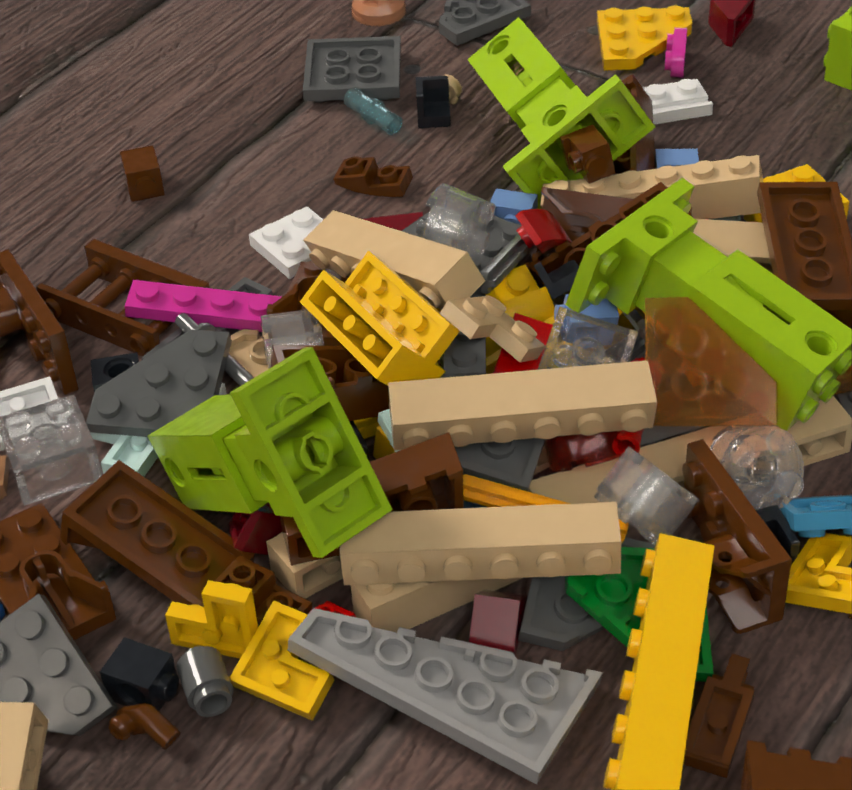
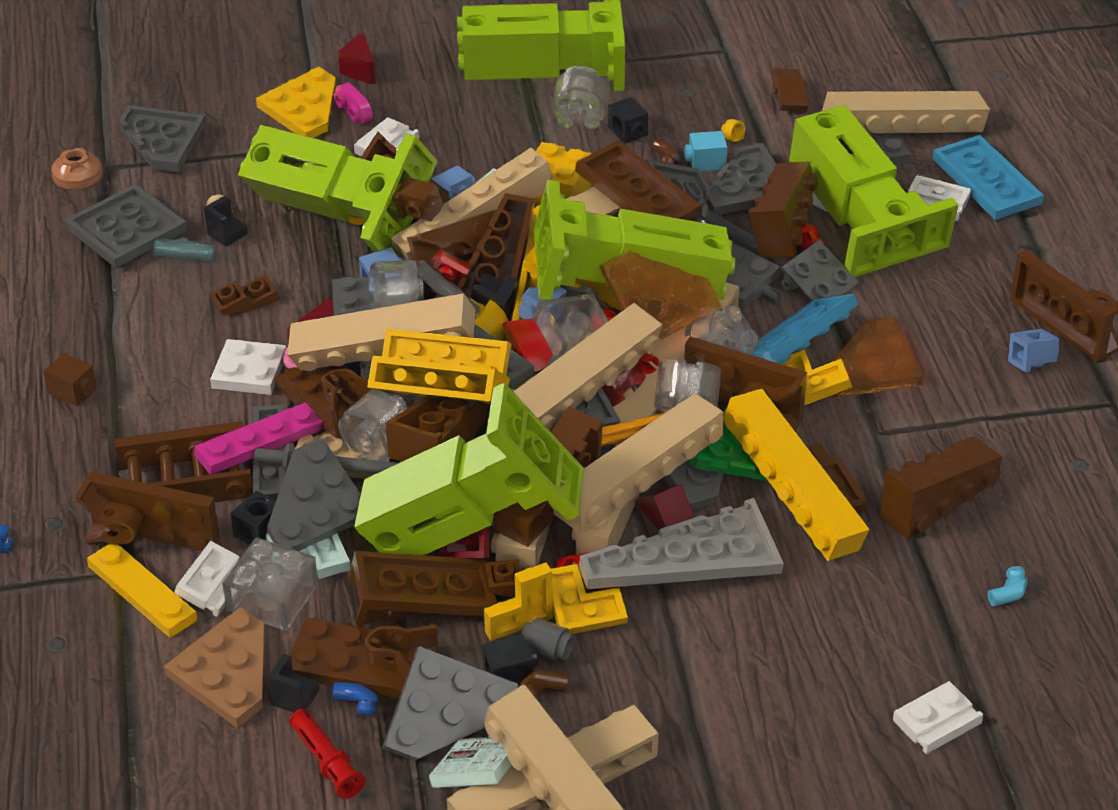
camera: 45 degrees left, 0 degrees up
(487, 318) = (508, 330): tan plate -> none

